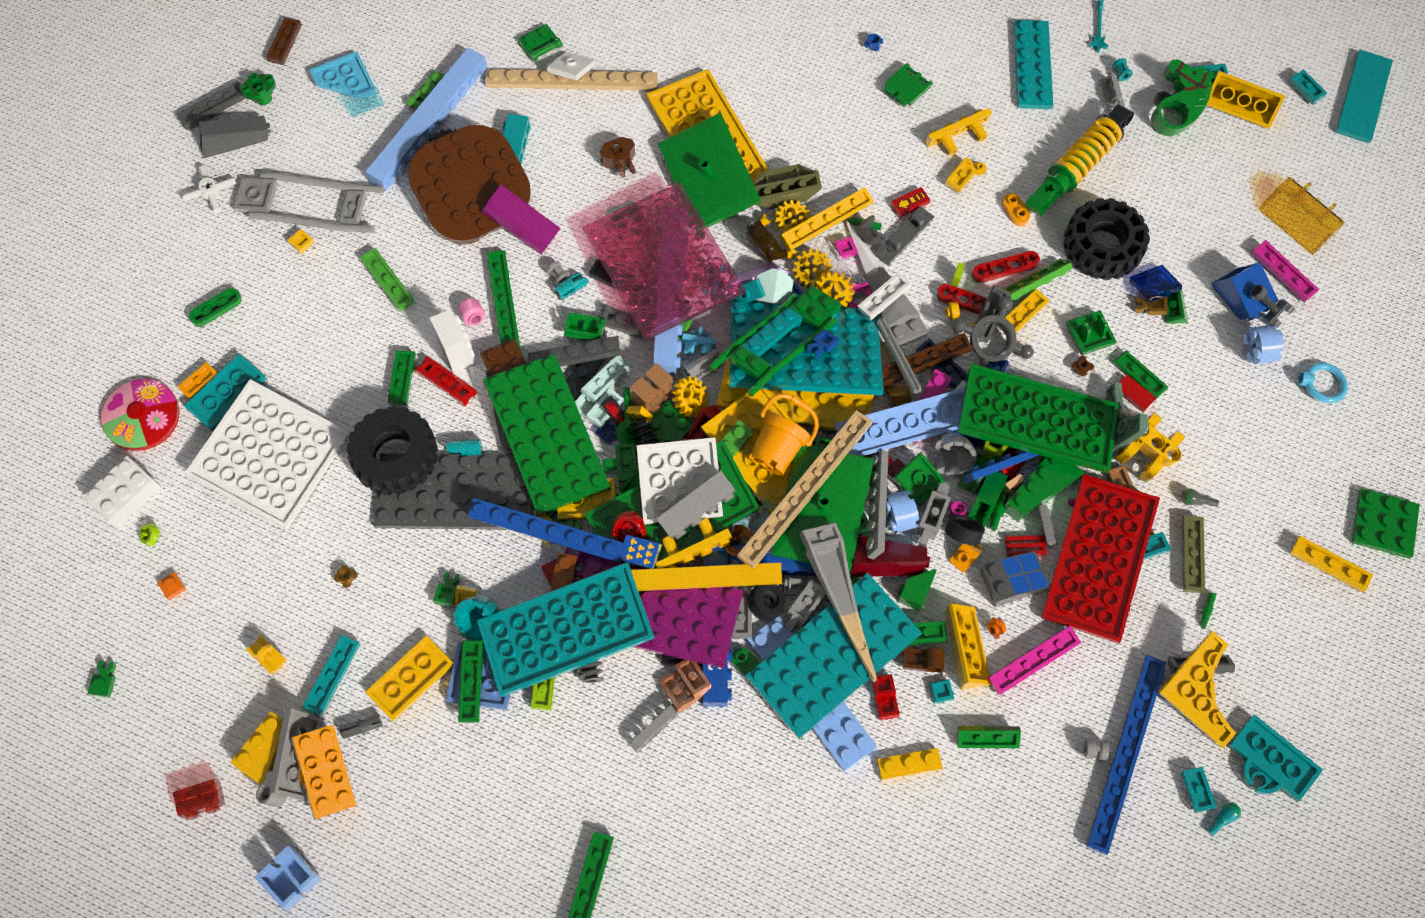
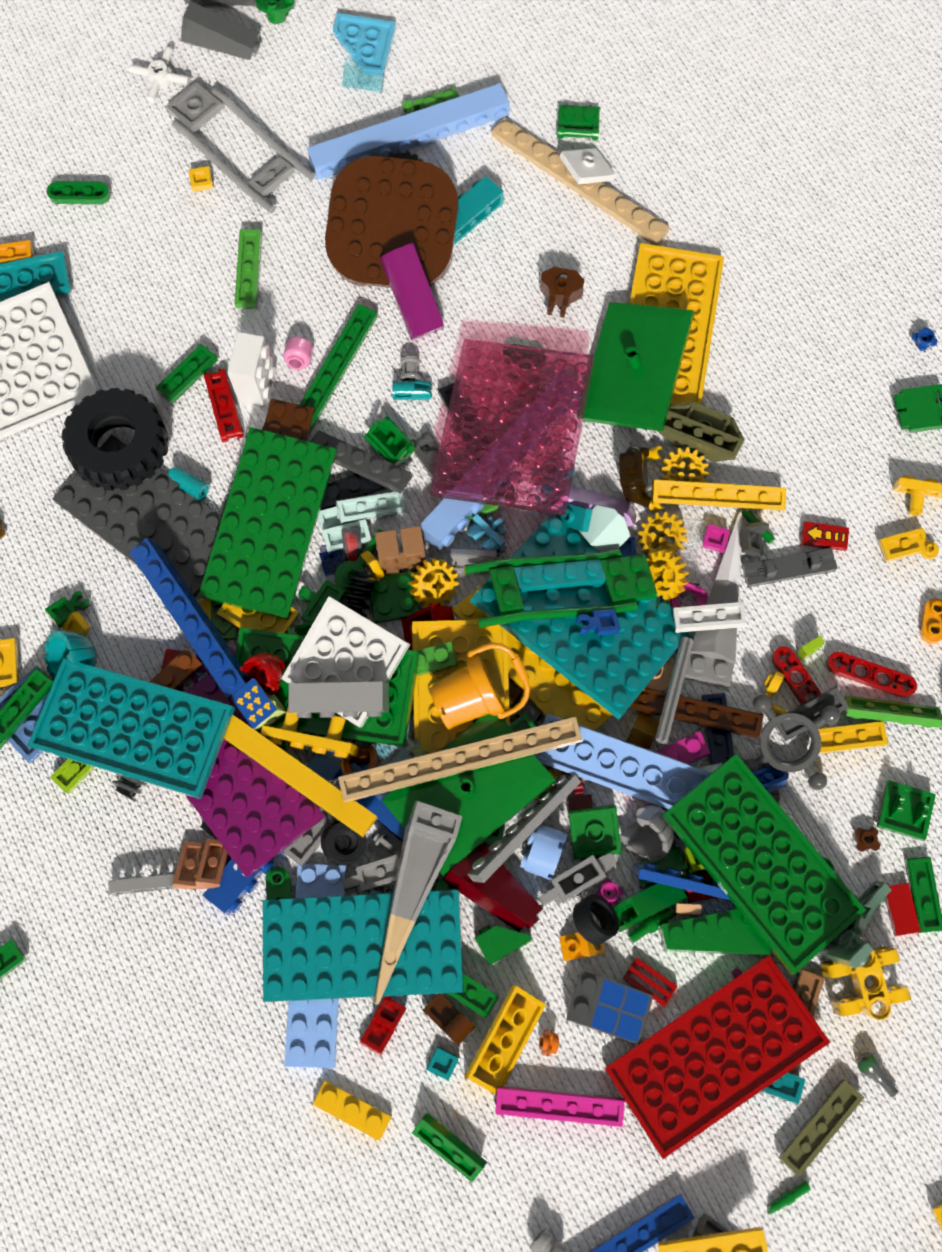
camera: 40 degrees right, 5 degrees up
(1047, 526) = (687, 979): light grey plate -> none

